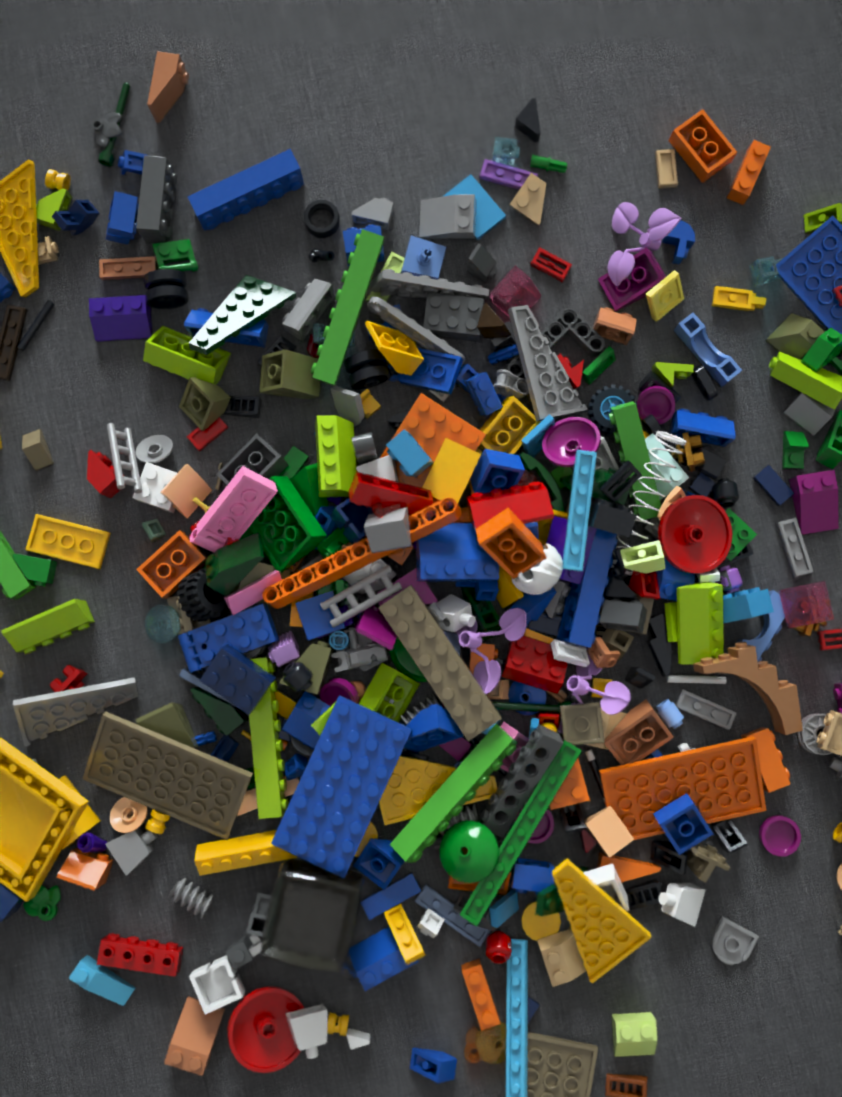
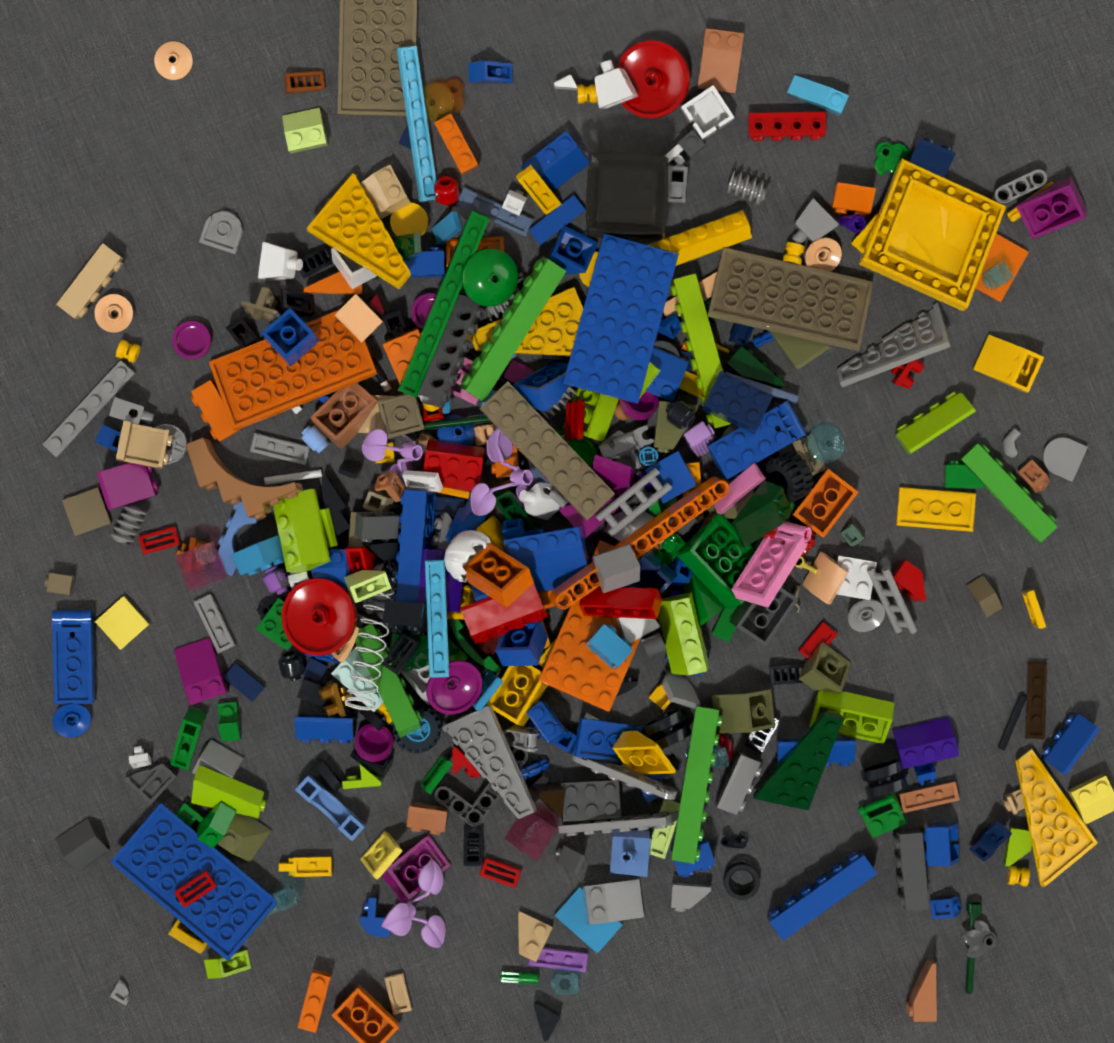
camera: 170 degrees right, 5 degrees up
(126, 288) = (925, 772): none -> blue tile
(379, 511) = (628, 584): clear red hand -> none
(407, 690) = (574, 420): none -> red tile
(451, 471) = (566, 637): yellow tile -> none
(574, 276) = (473, 829): none -> black slope

